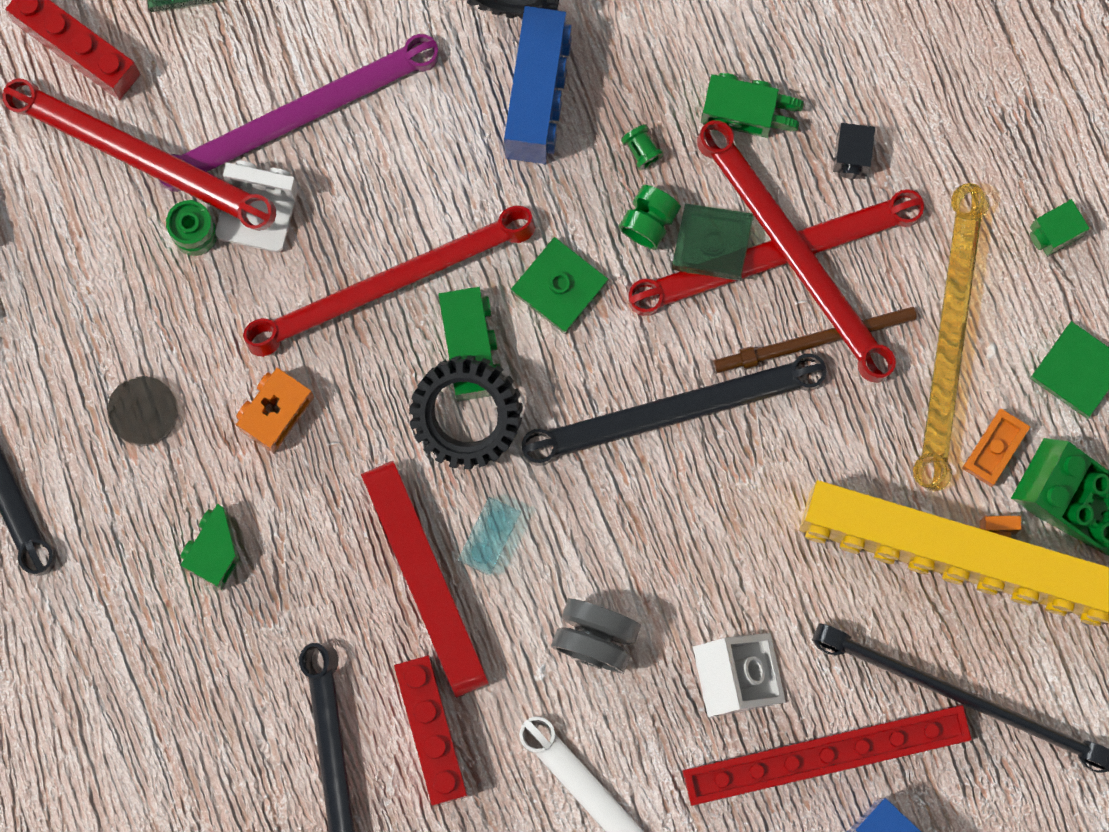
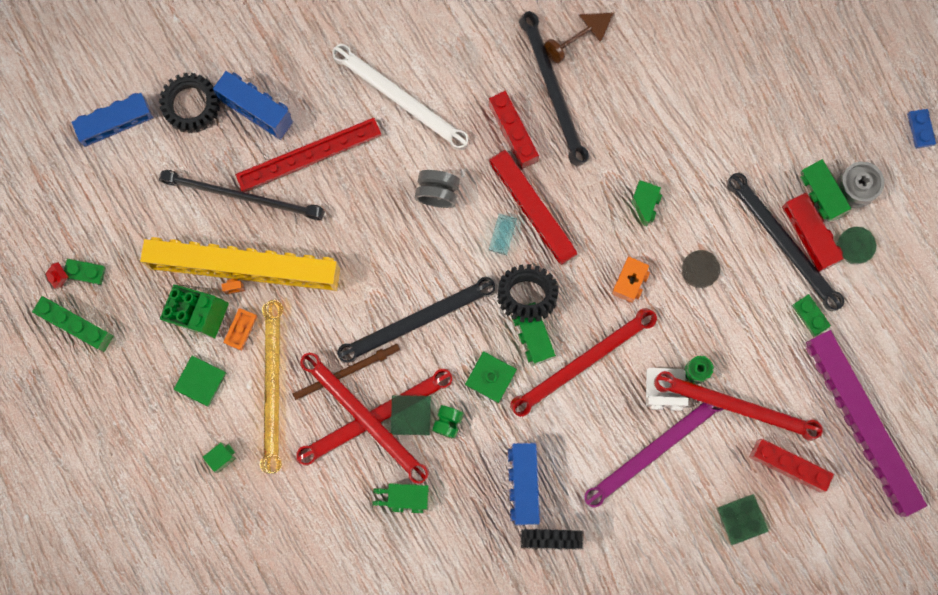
camera: 170 degrees right, 0 degrees up
(642, 146) = (459, 463): green bush -> none
(738, 674) = (359, 186): white slope -> none
(853, 150) = (340, 481): black brick -> none

